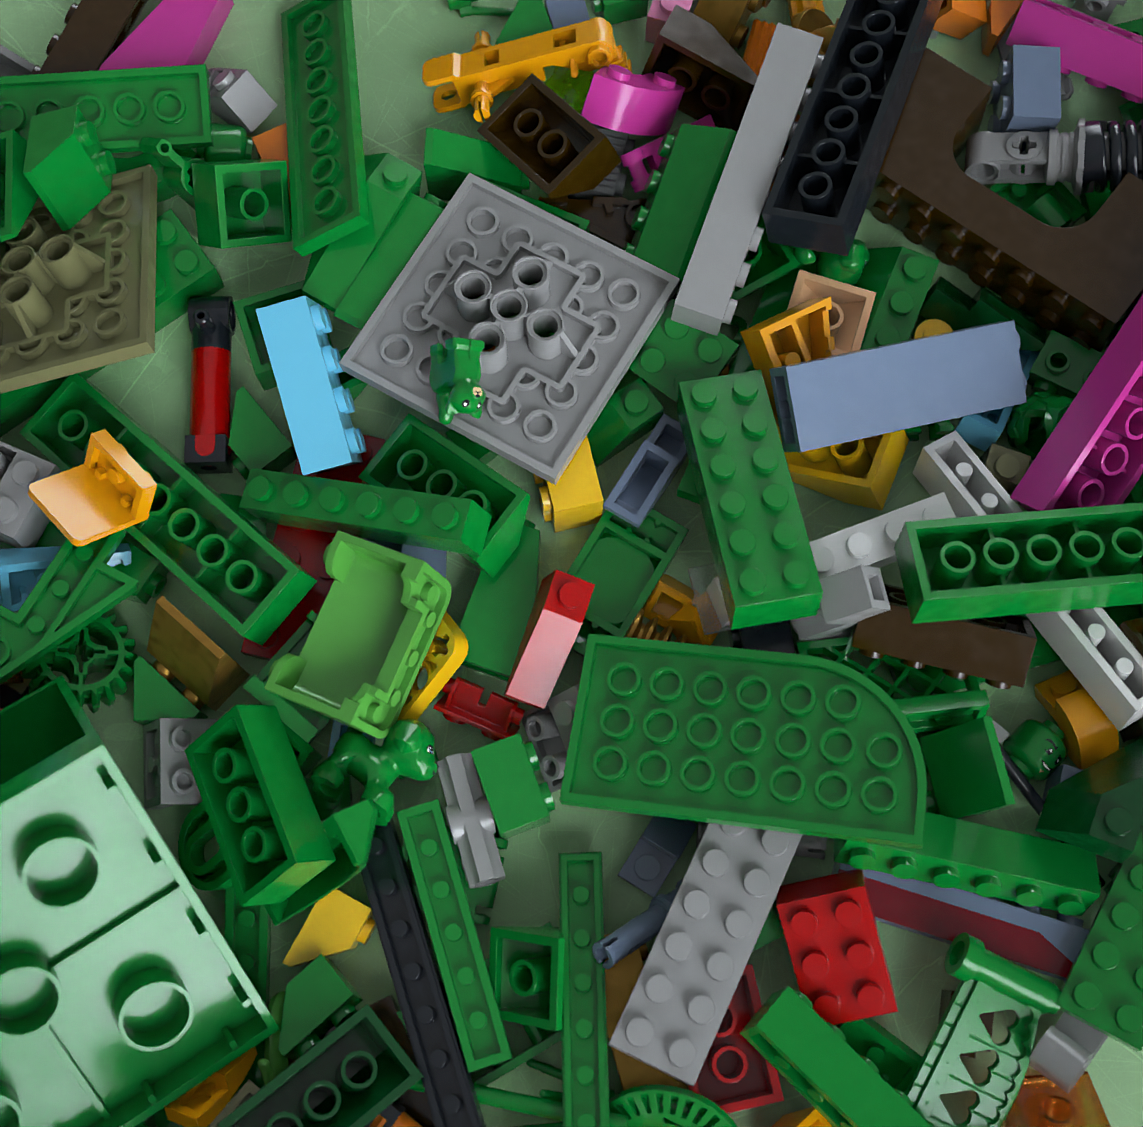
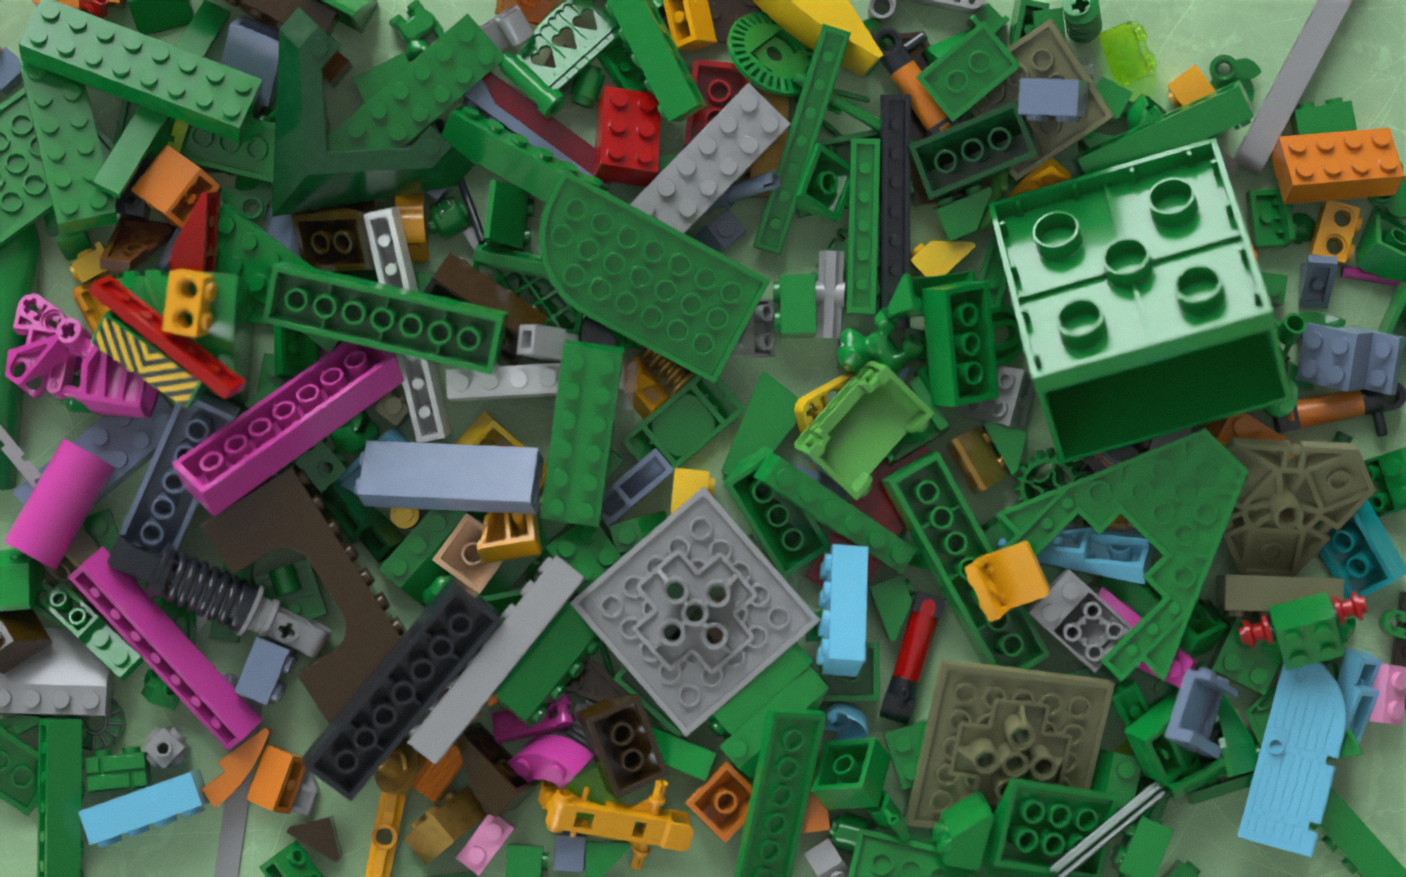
camera: 160 degrees left, 10 degrees up
(268, 272) = (846, 721): none -> medium azure hair
(397, 118) = (722, 801): none -> orange slope
(456, 378) = (744, 577): green animal -> none
(462, 705) = (810, 372): red hinge -> none
(548, 637) = (740, 392): slope -> none
(917, 1007) = (587, 86): none -> green brick

